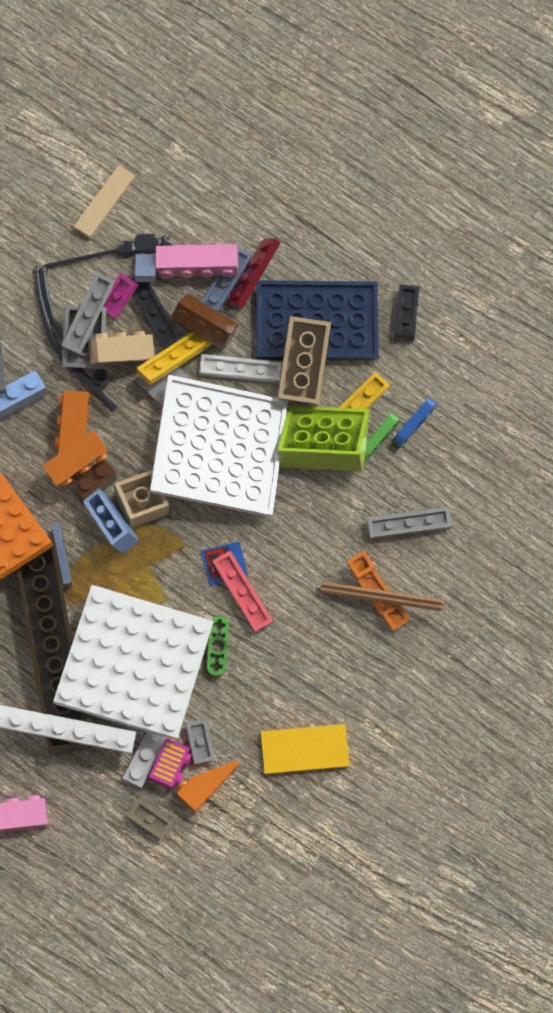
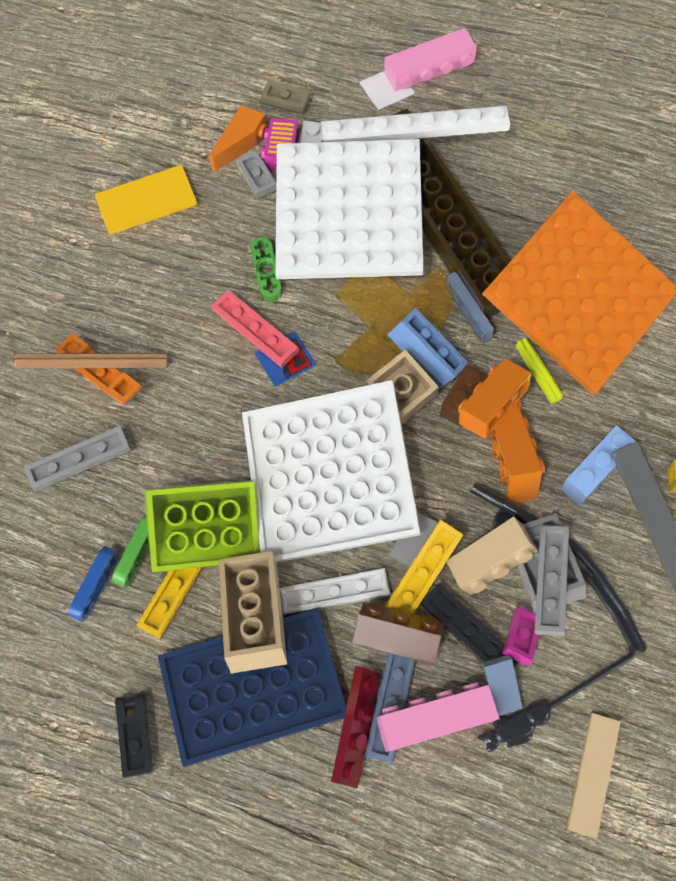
camera: 175 degrees right, 5 degrees down
(25, 485) = (539, 370): none -> neon yellow axle
(58, 807) = (382, 92): none -> white sticker

